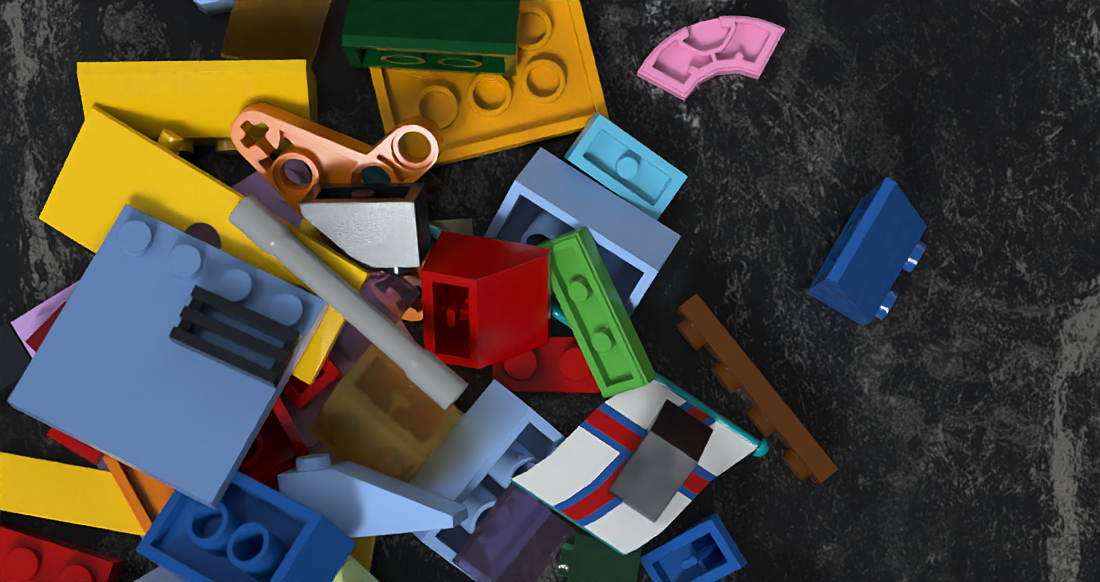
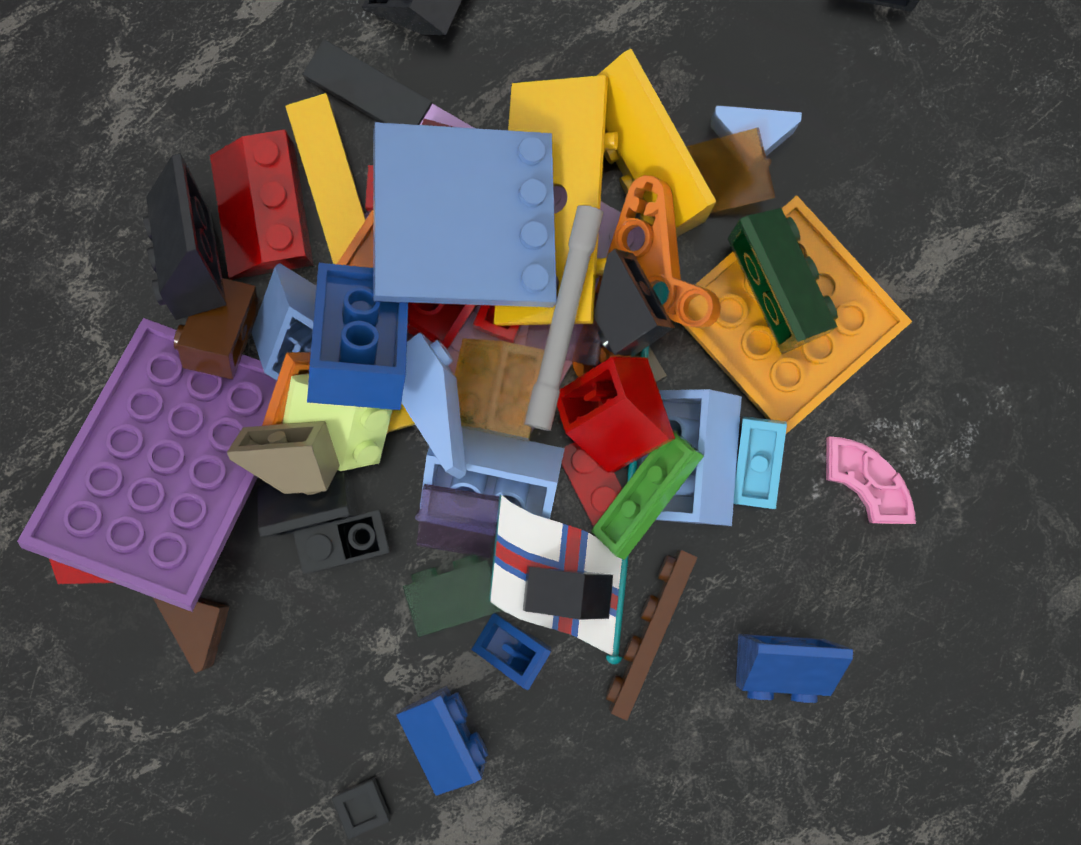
camera: 65 degrees right, 0 degrees up
(193, 316) = (498, 217): black tile -> none

